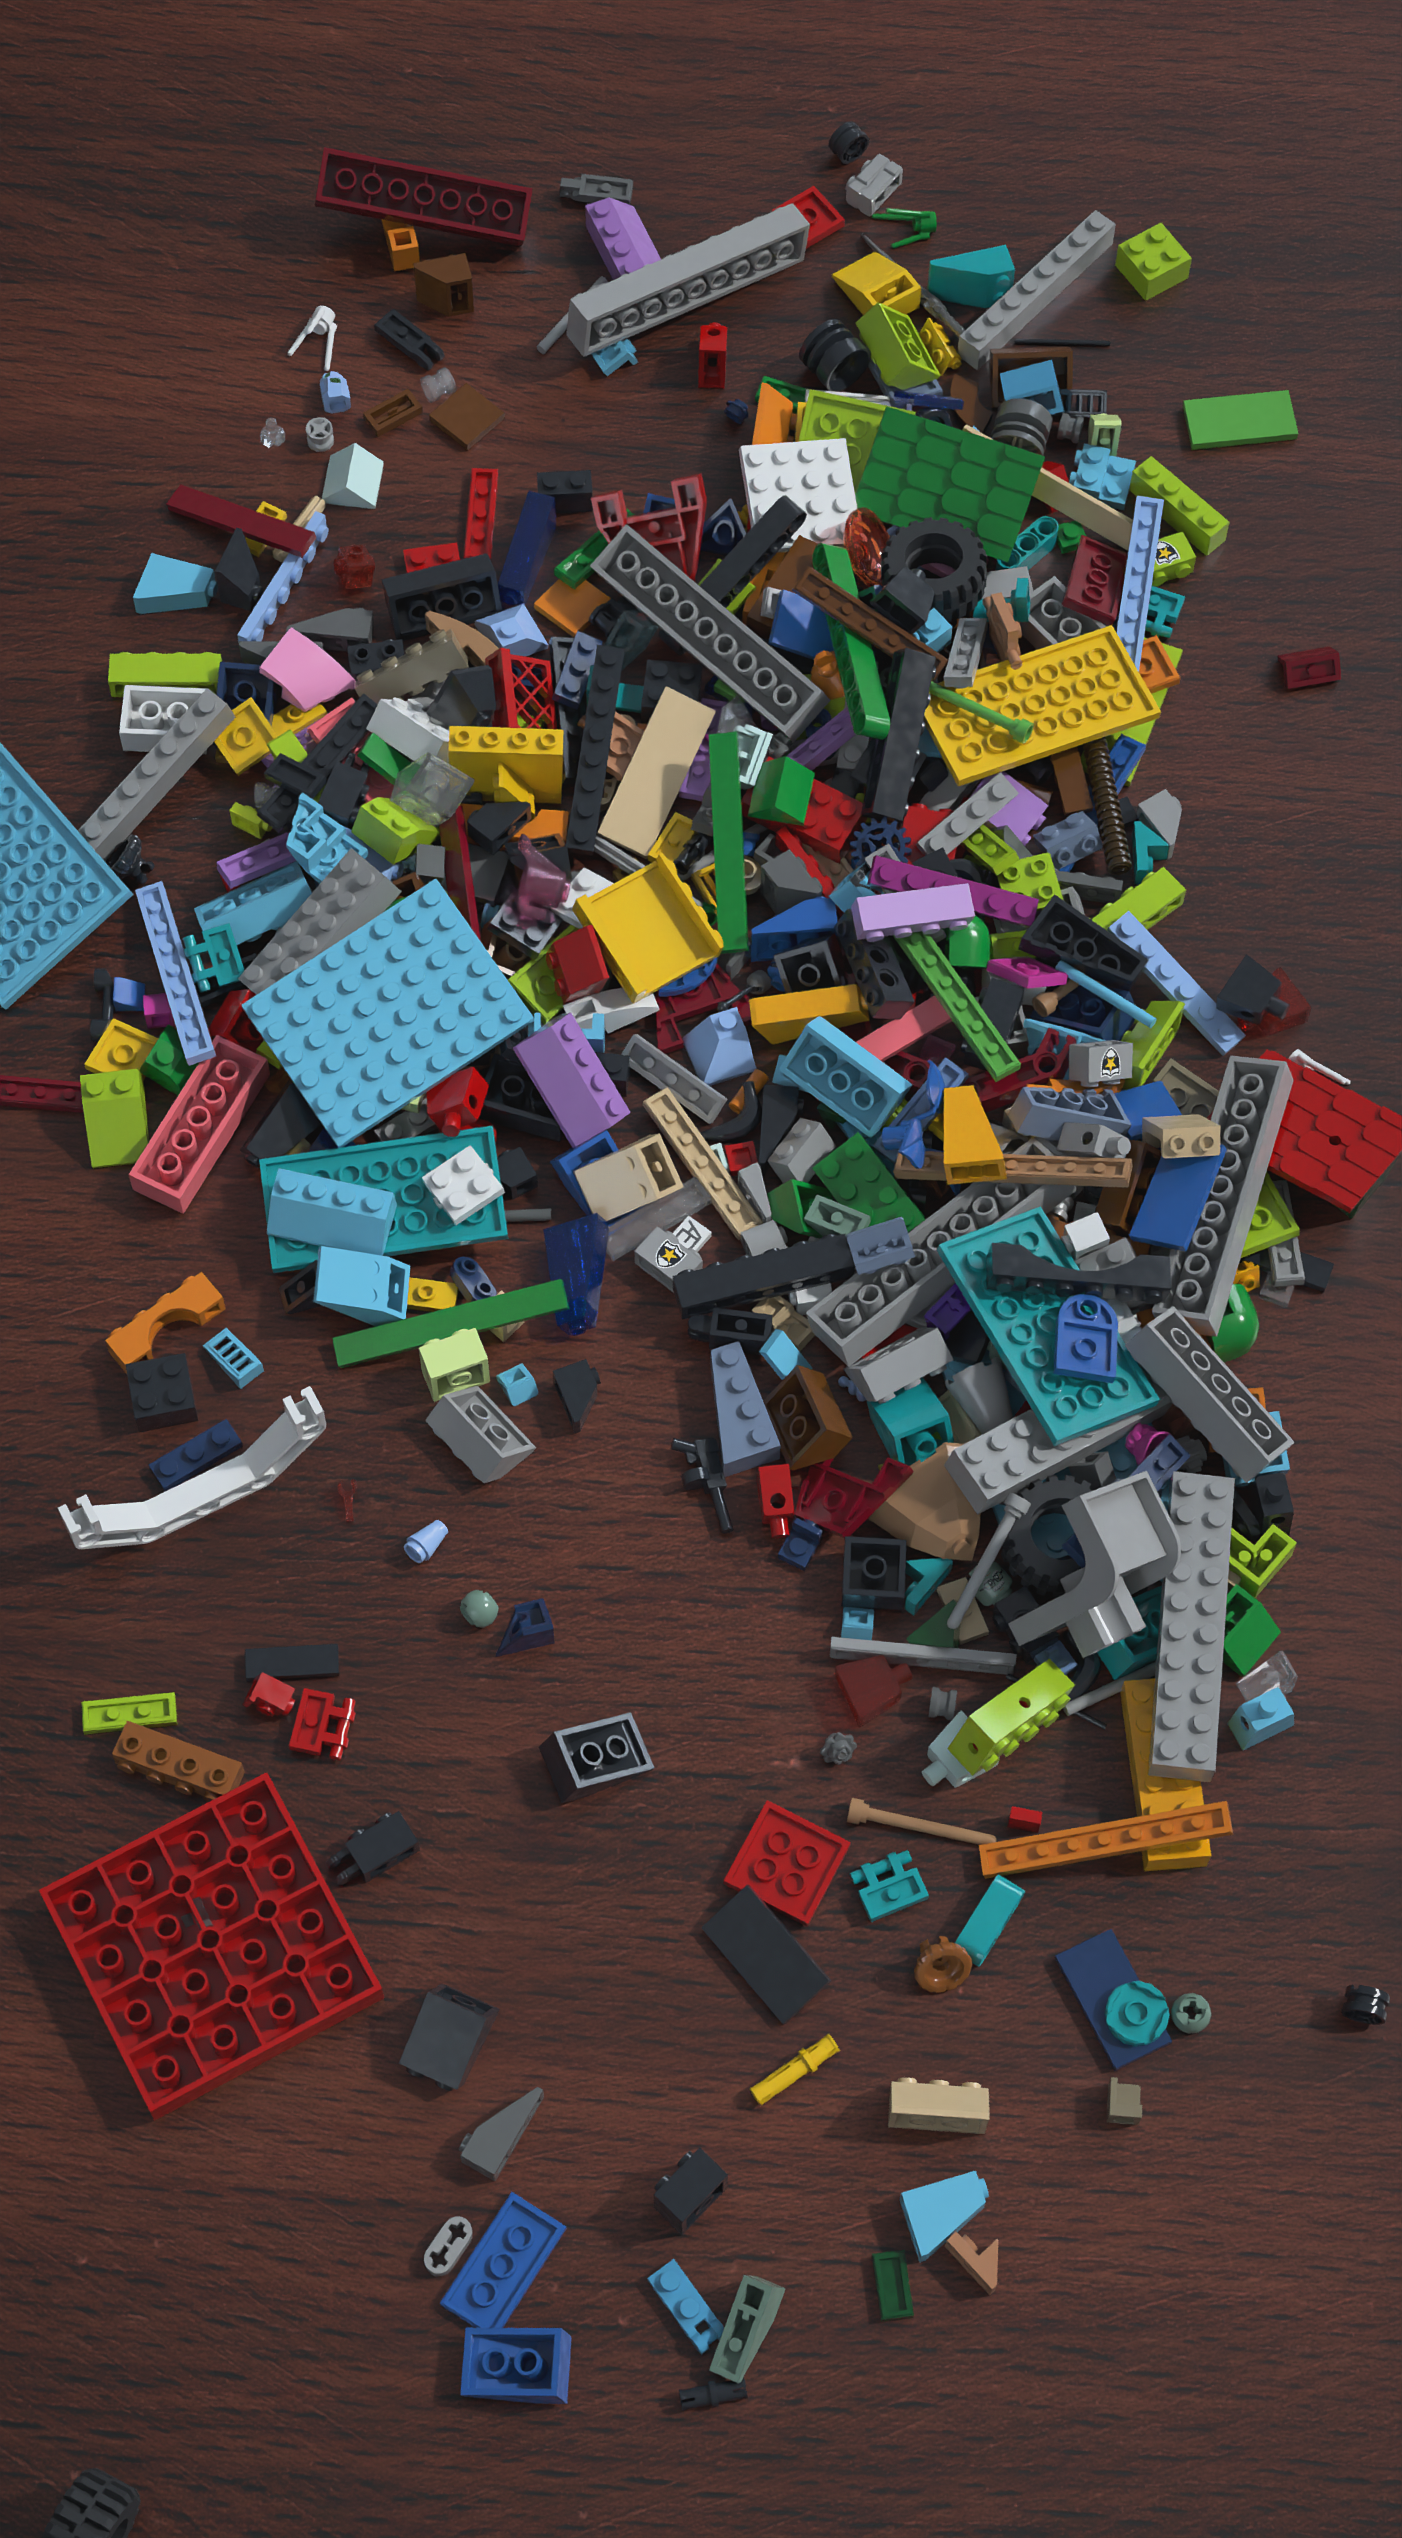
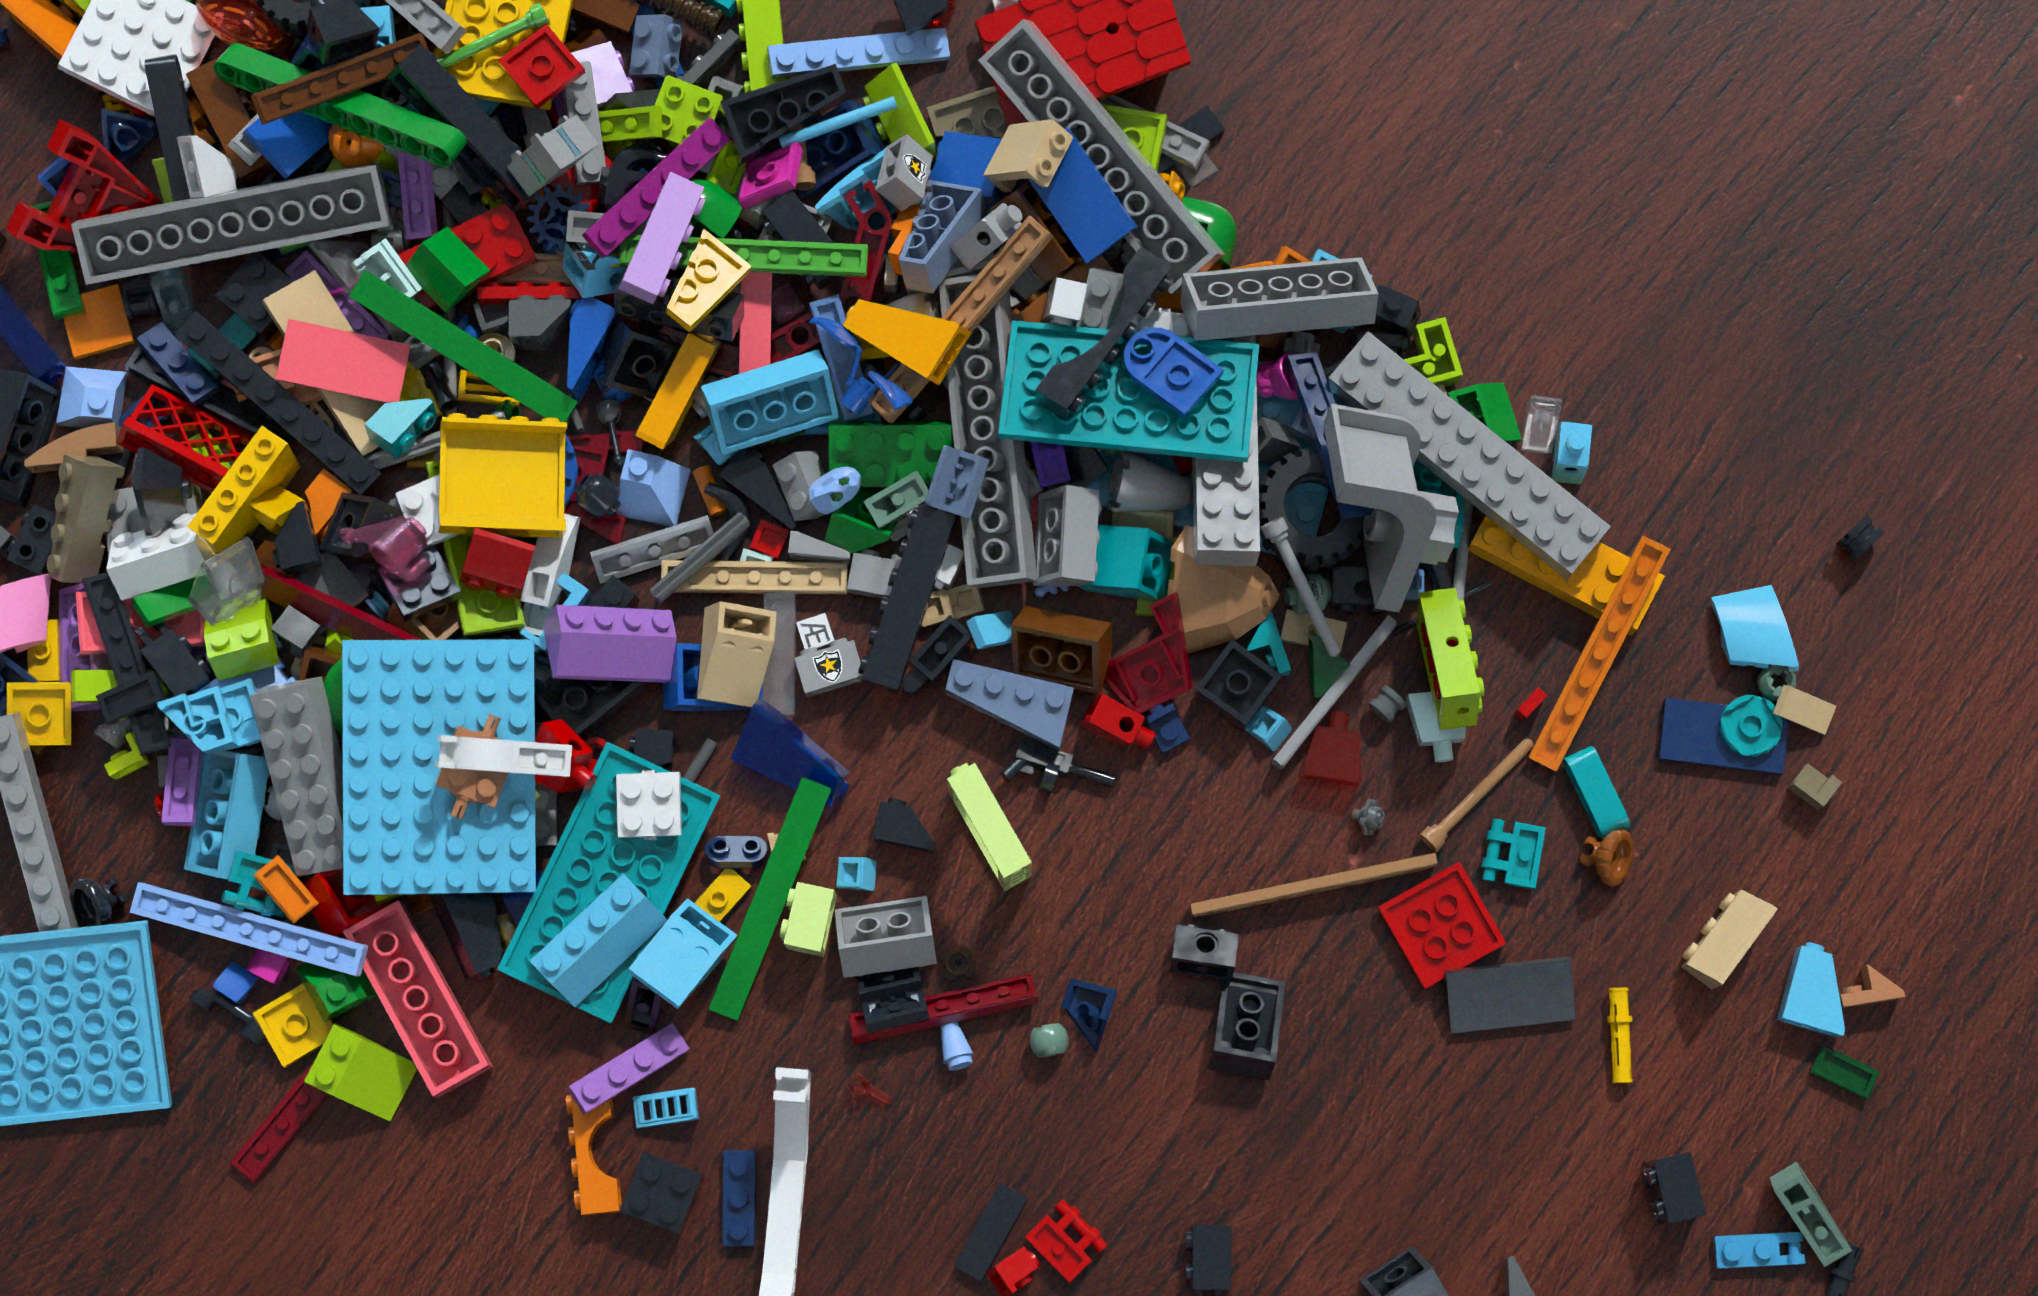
camera: 55 degrees left, 15 degrees up
(222, 975) = (285, 889): none -> orange tile
(244, 1305) = (628, 1069): none -> medium lavender plate
(404, 1034) = (473, 784): none -> nougat plate
(424, 1042) = (504, 756): none -> white piece
(433, 1467) = (892, 998): none -> black slope
(451, 1513) = (957, 1006): none -> dark red tile
(496, 1494) = (962, 955): none -> dark brown plate
(618, 1443) = (989, 826): none -> yellowish green window
(632, 1699) = (1189, 960): none -> black brick
(639, 839) = (400, 424): none -> slope
(658, 770) = (343, 362): none -> coral tile
(684, 1008) = (597, 495): none -> black head
(688, 1110) = (699, 557): none -> dark grey axle
(737, 588) = (205, 168): none -> white slope
(750, 1738) = (1313, 885): none -> medium nougat tile
(811, 1168) = (834, 489): none -> light blue rock
(907, 965) = (706, 281): none -> wing
(921, 802) = (551, 154): none -> light grey container
(984, 755) = (541, 66): none -> red plate
(1182, 2048) = (1804, 709): none -> tan tile
(1222, 1963) = (1754, 629): none -> medium azure slope

